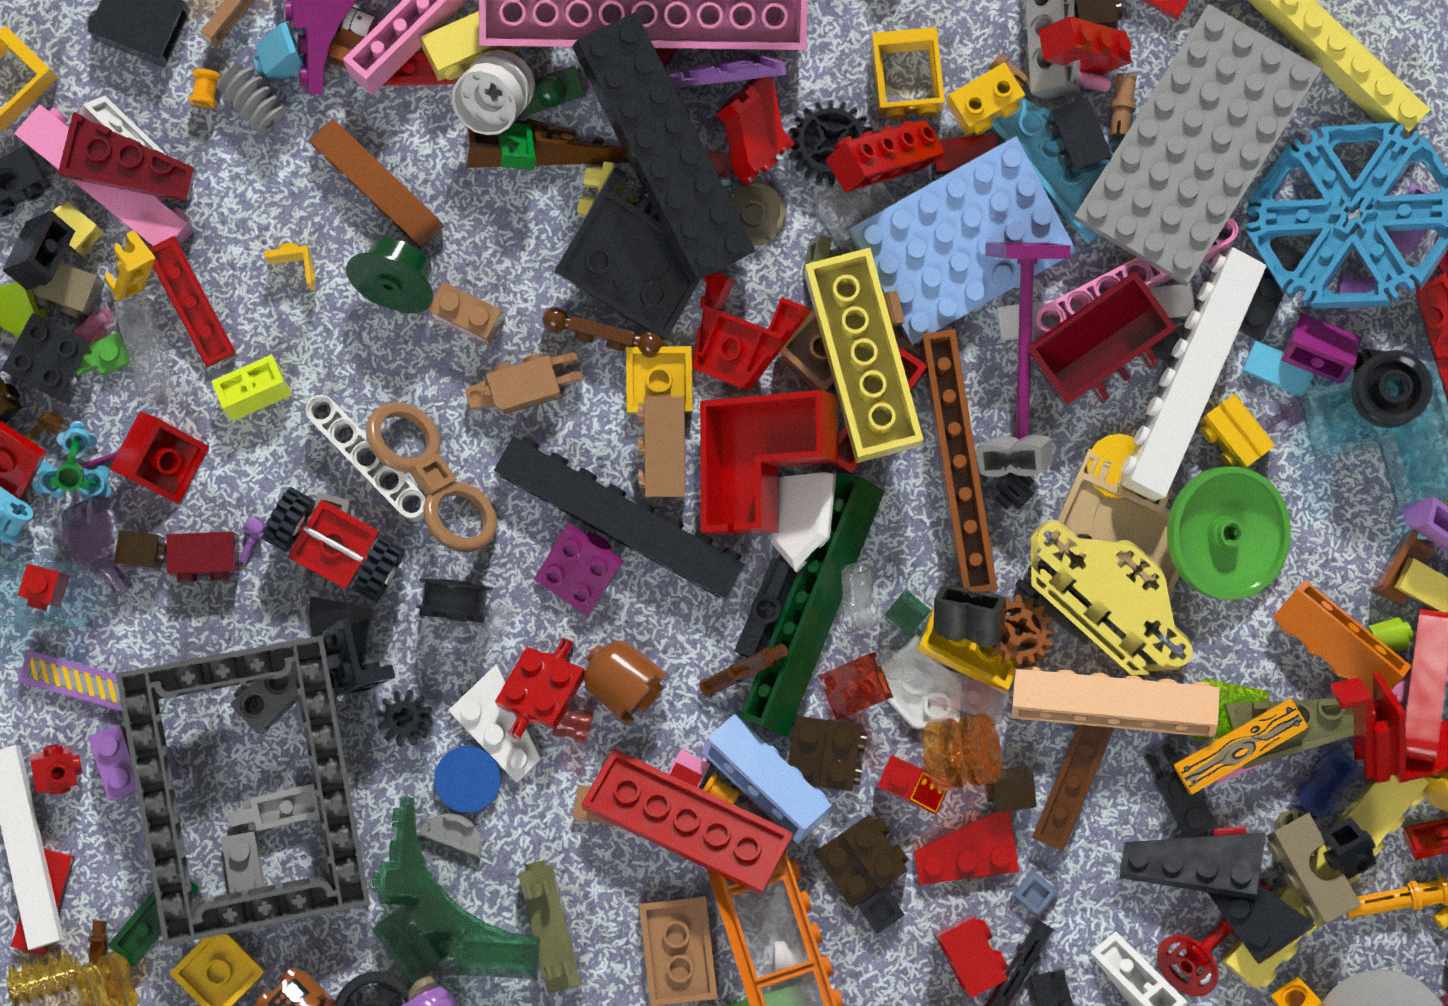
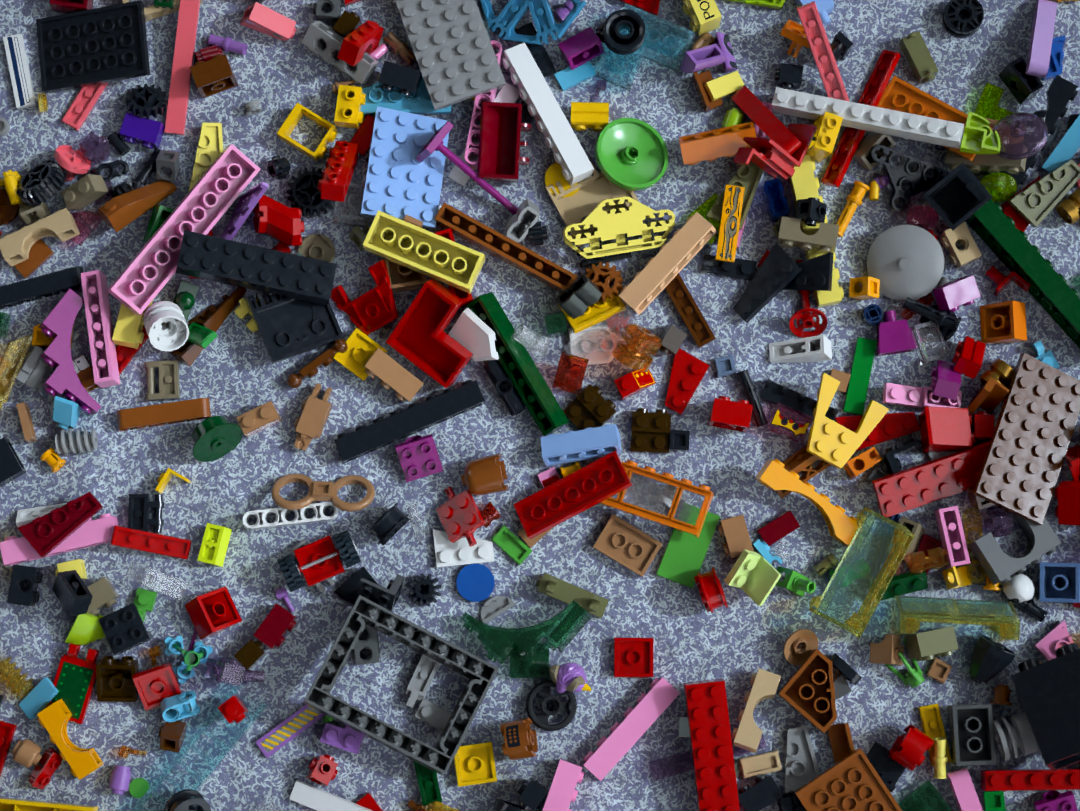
camera: 50 degrees left, 0 degrees up
(93, 327) = (126, 597): clear pink cylinder -> none
(133, 267) = (113, 557): yellow hinge -> none
(219, 256) = (139, 512): none -> black plate
(427, 153) = (168, 380): none -> dark tan plate
(557, 789) = (511, 545): none -> bright green tile
(737, 672) = (522, 422): reddish brown piece -> none
(828, 72) = (278, 167): none -> black gear

